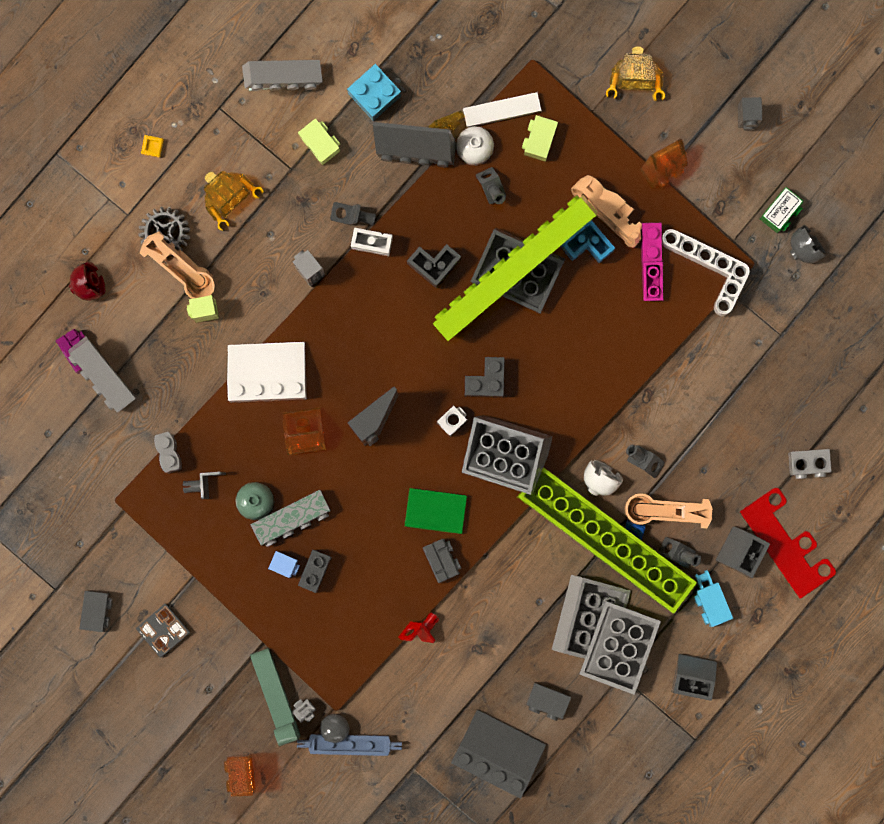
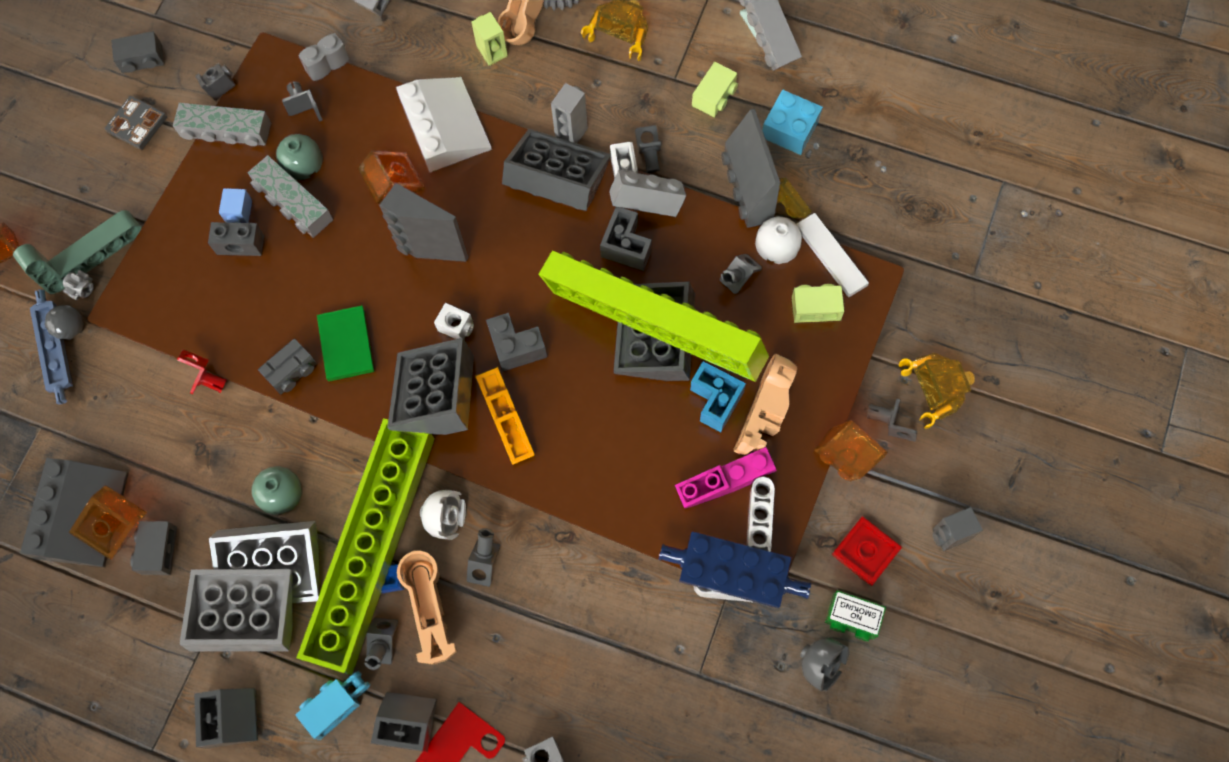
camera: 70 degrees right, 15 degrees down
(153, 550) = (216, 81): none -> flat silver brick
(200, 556) = (222, 124): none -> light grey brick
(346, 295) = (555, 169): none -> dark grey slope
(404, 232) = (647, 193): none -> light grey brick
(517, 728) = (107, 522): none -> clear orange slope
(534, 598) = (276, 490): none -> sand green cylinder
(541, 407) = (505, 416): none -> light orange slope
(646, 122) = (890, 416): none -> dark grey bracket
(724, 282) = (735, 570): none -> dark blue plate
(737, 181) = (866, 551): none -> red tile

